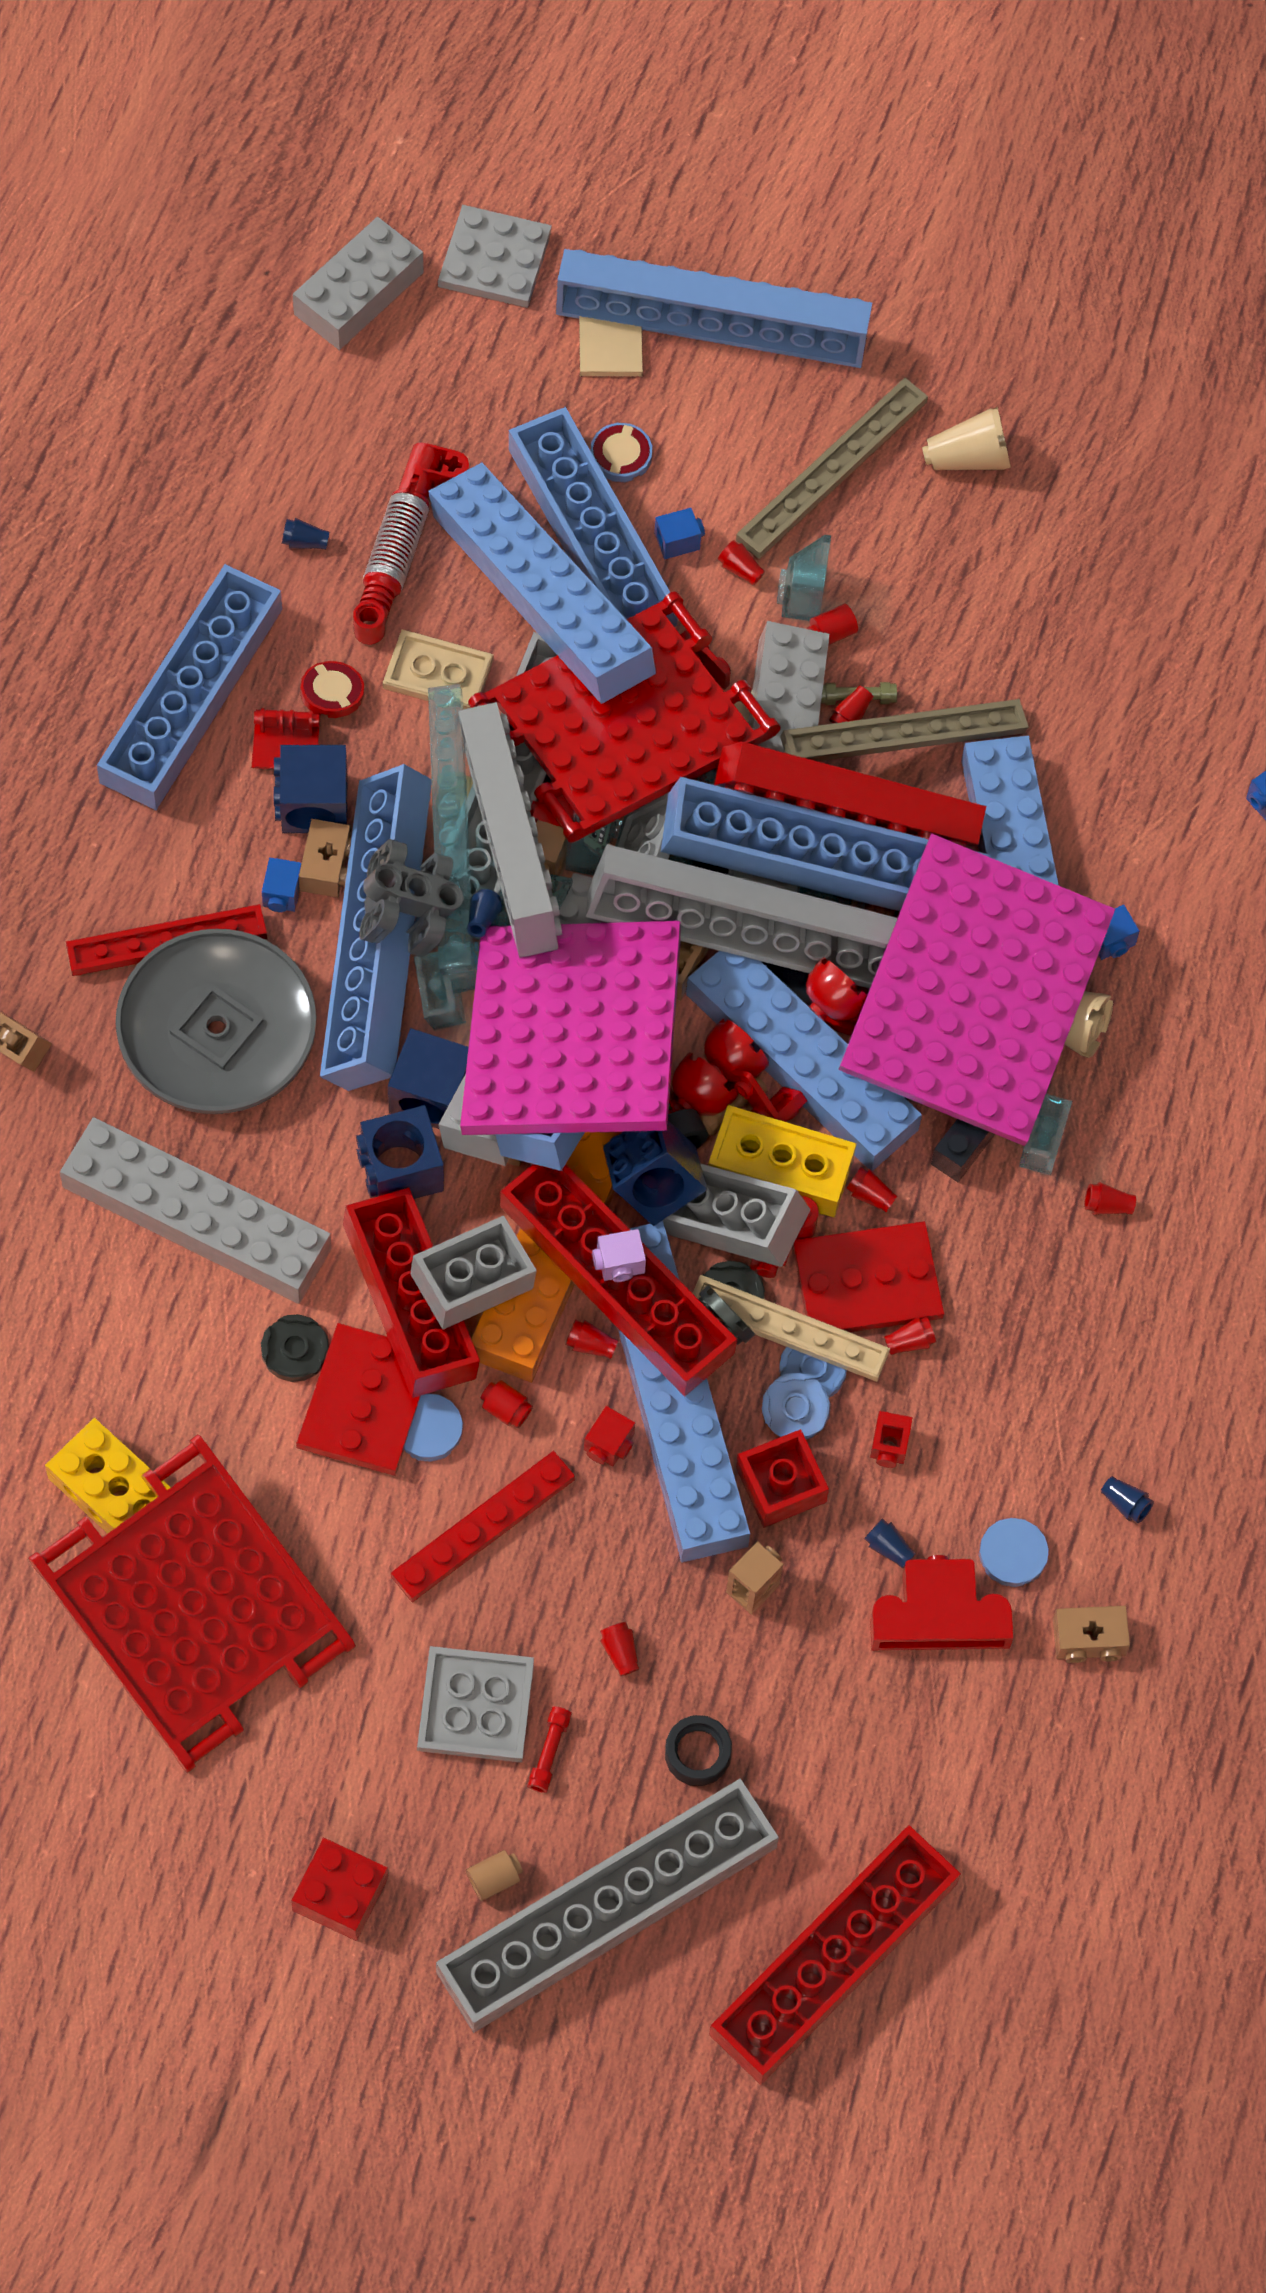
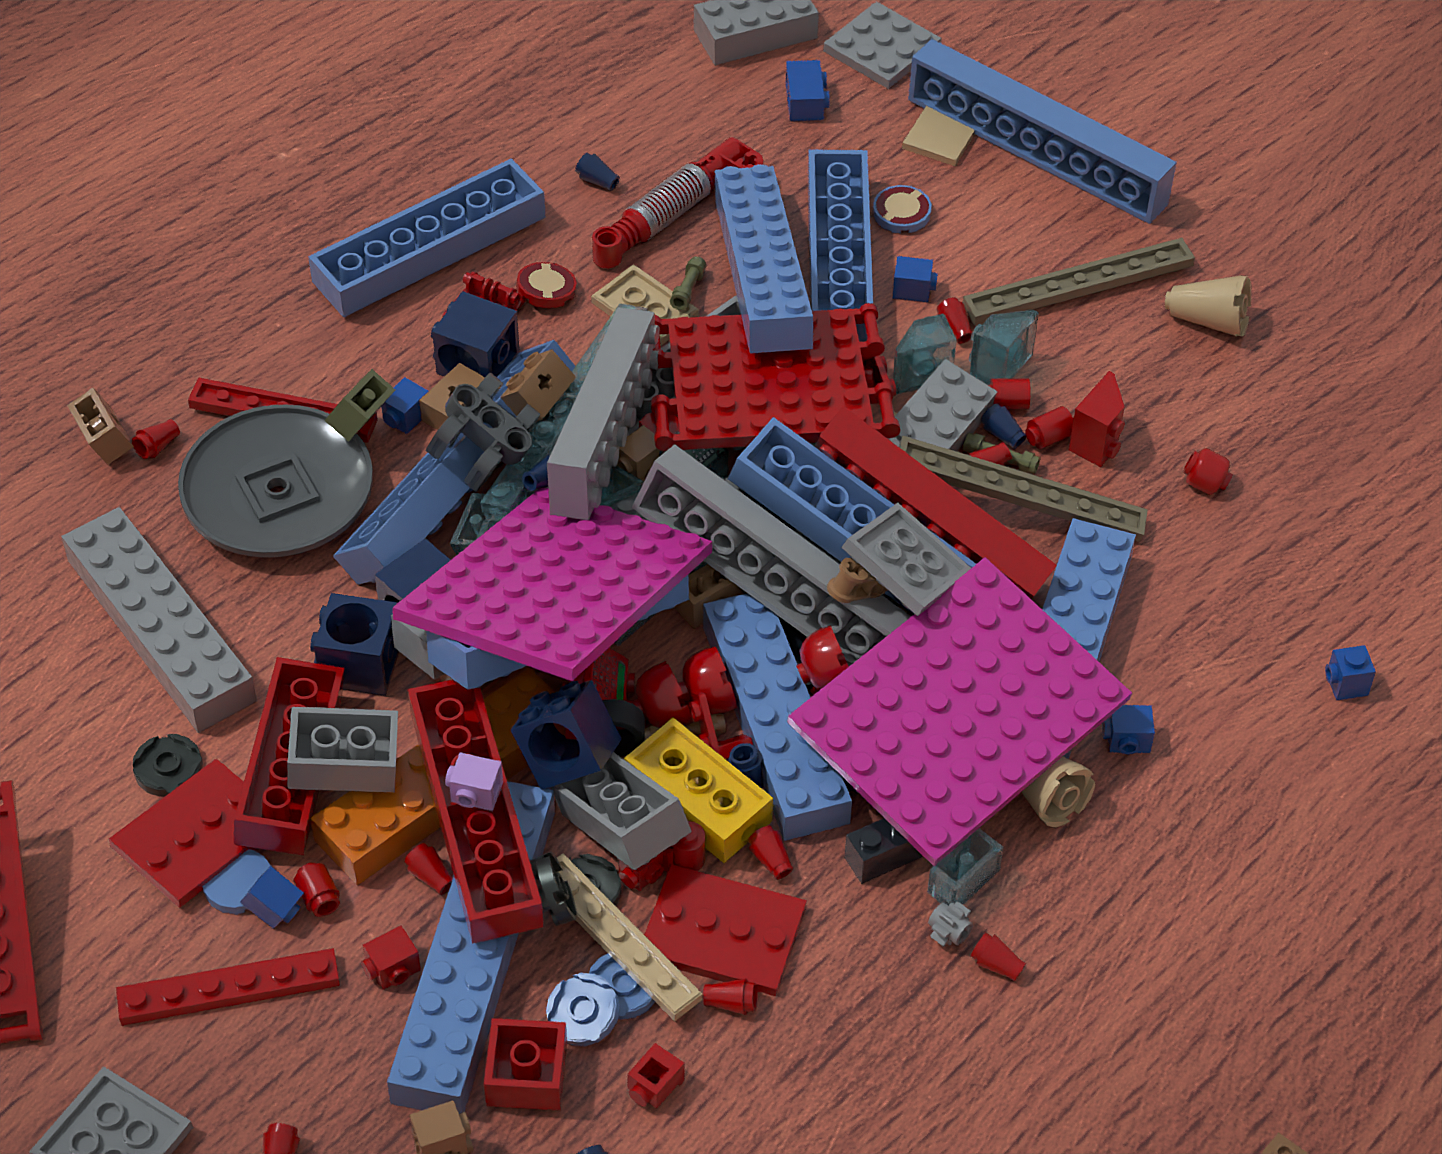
camera: 30 degrees right, 15 degrees down
(64, 1027) = (154, 439): none -> red cone
(256, 911) = (359, 405): none -> olive brick
(421, 821) = (538, 383): none -> medium nougat brick
(454, 349) = (806, 90): none -> blue brick
(465, 613) = (682, 294): none -> olive bar
(476, 1430) = (273, 898): none -> blue brick
(742, 617) = (922, 351): none -> clear light blue slope
(811, 1116) = (748, 761): none -> dark blue cone
(834, 905) = (854, 583): none -> medium nougat piece
(845, 663) = (1002, 425): none -> dark blue cone
(868, 867) = (906, 558): none -> light grey plate
(889, 647) = (1049, 427): none -> red brick
(939, 626) = (1098, 422): none -> red slope
(1052, 634) = (1207, 471): none -> red head
(1057, 1188) = (950, 923): none -> light grey gear

